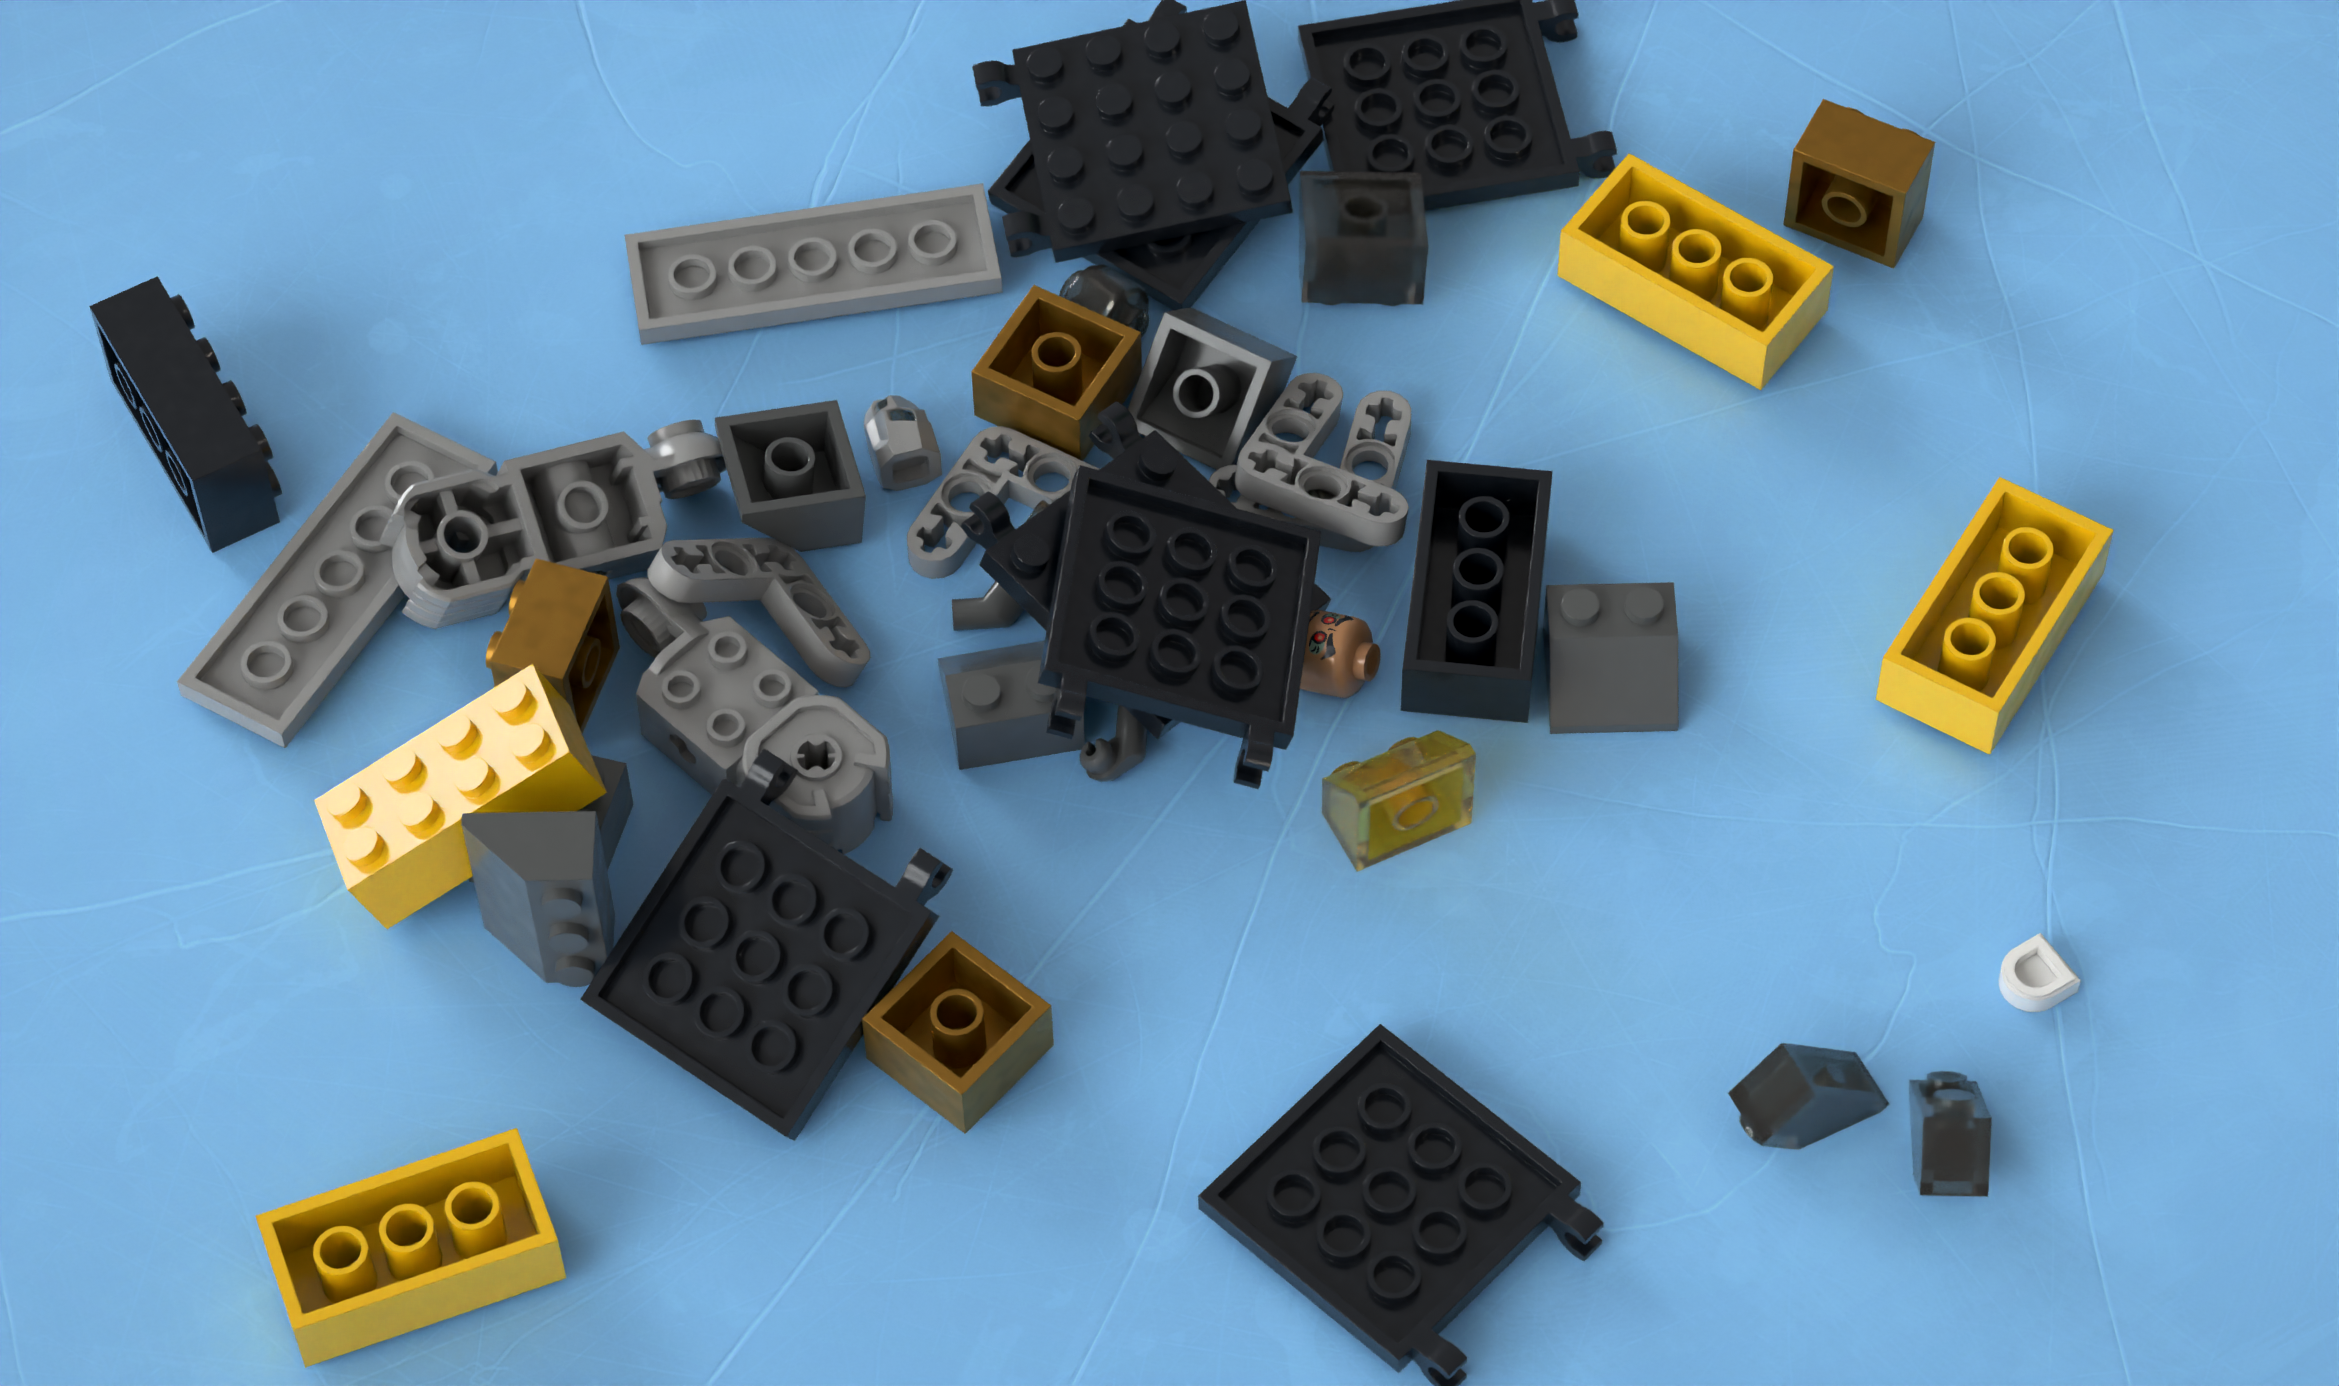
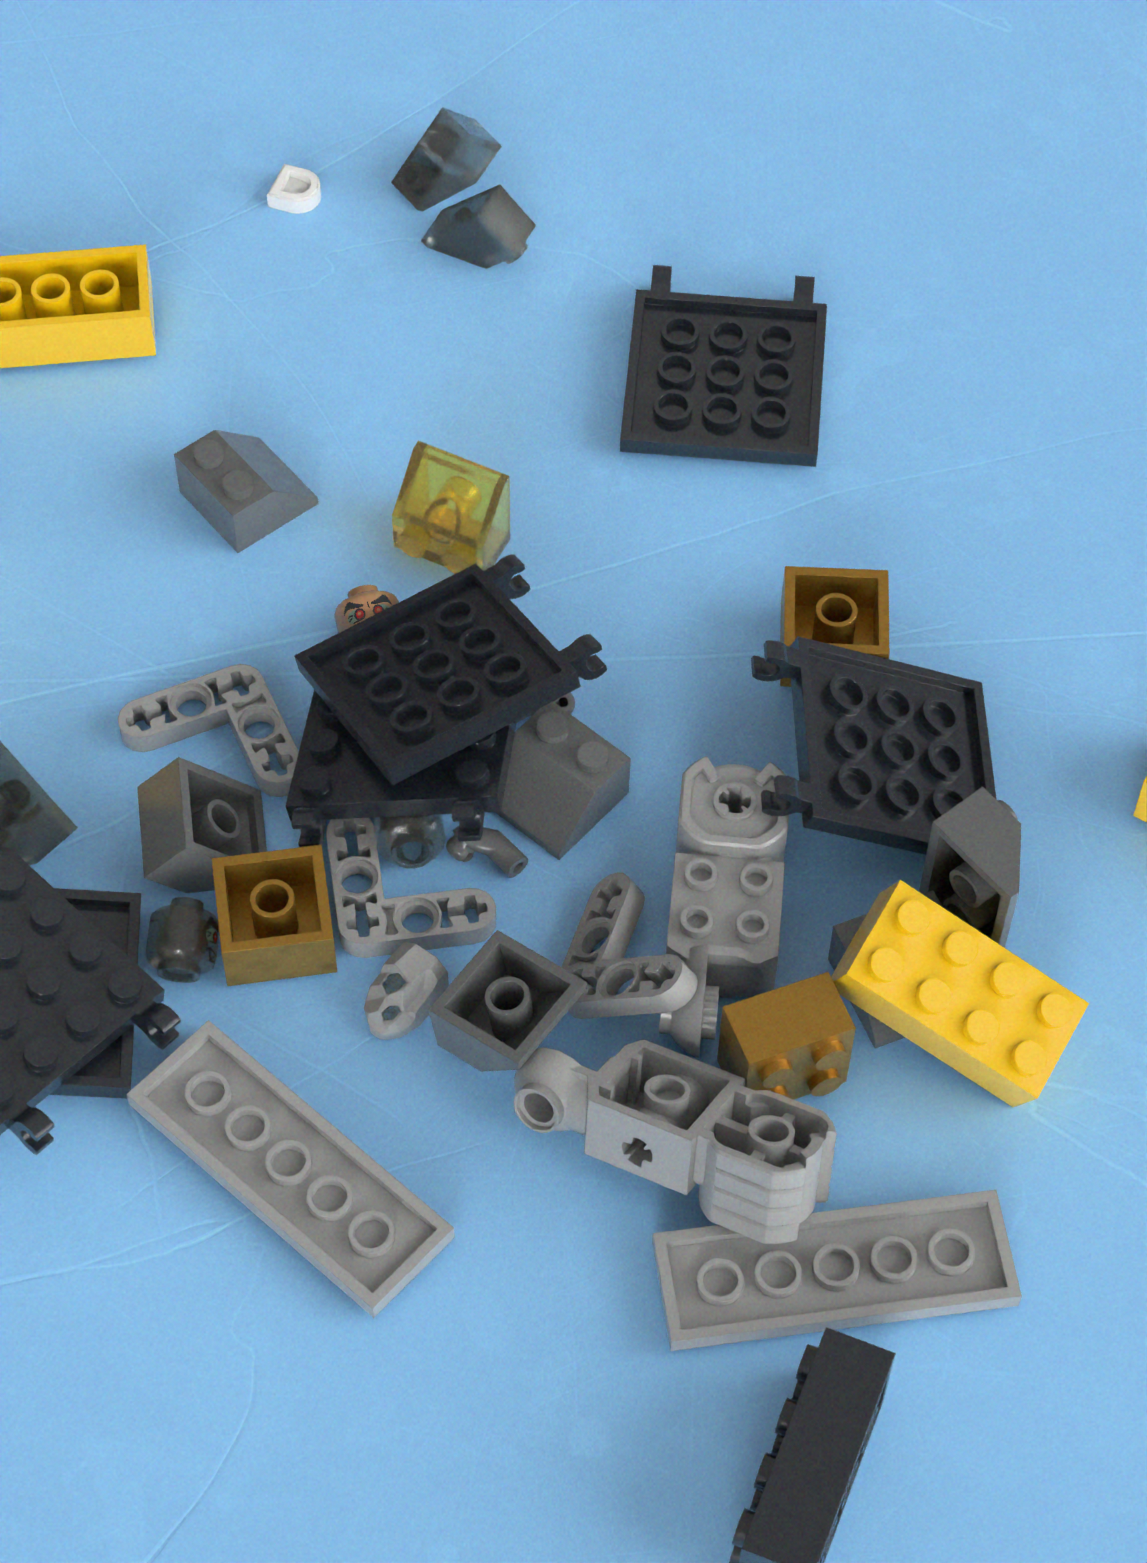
camera: 130 degrees left, 0 degrees up
(1294, 462) = (238, 731): light grey beam -> none
(1476, 591) = (257, 567): black brick -> none

